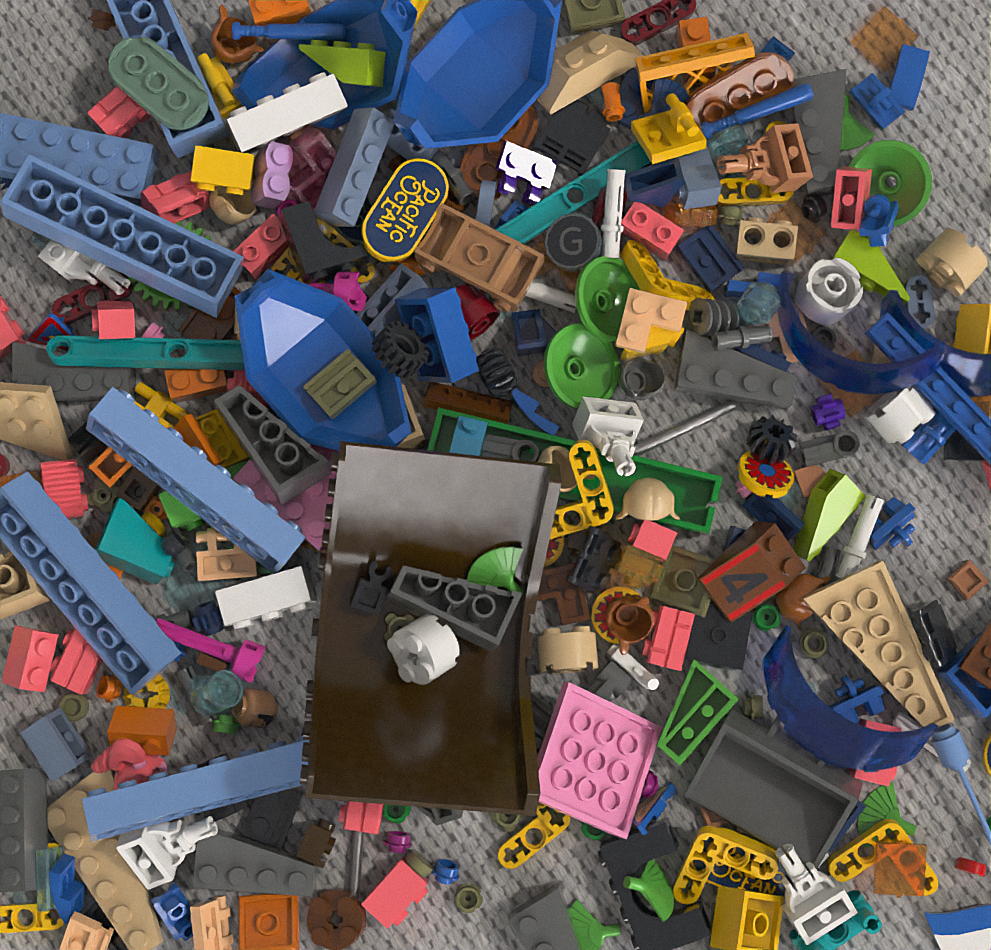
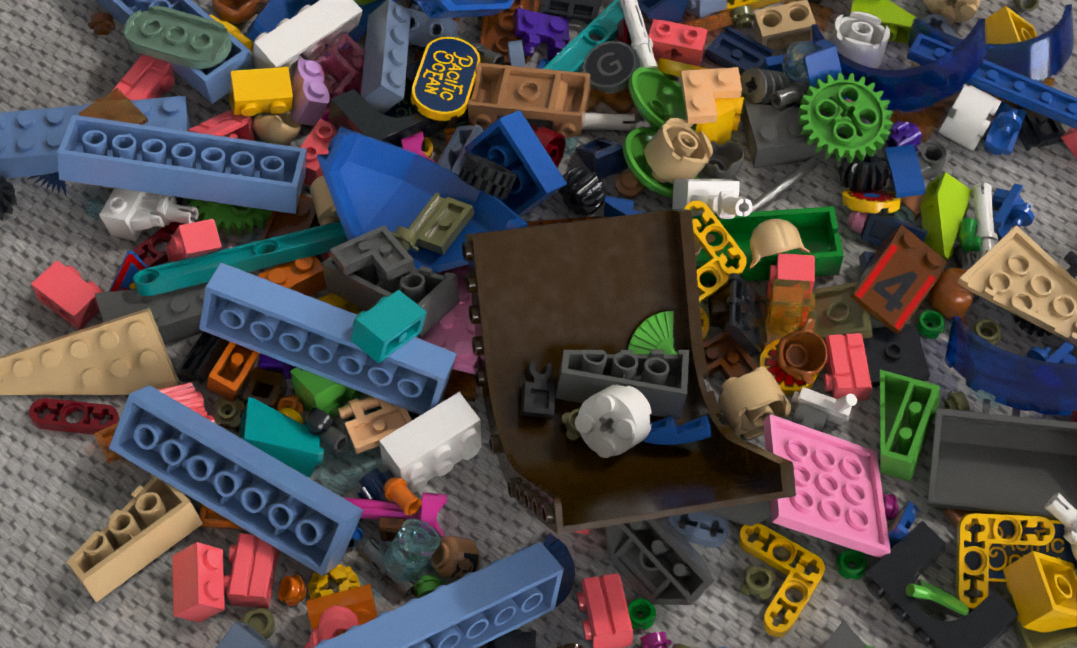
camera: 20 degrees left, 25 degrees down
(76, 150) = (115, 107): none -> clear orange piece
(223, 642) = (397, 491): none -> orange pin
(245, 501) = (387, 325): none -> teal brick
(262, 406) = (375, 248): none -> flat silver plate
(297, 397) = (406, 238): none -> olive plate
(476, 666) = (667, 433): none -> blue slope
(596, 370) = (677, 151): none -> tan brick
(771, 332) = (822, 62): none -> blue panel
(797, 380) = (845, 117): none -> bright green gear
(808, 456) = (904, 171): none -> blue slope
(836, 546) = (966, 236): none -> green arm

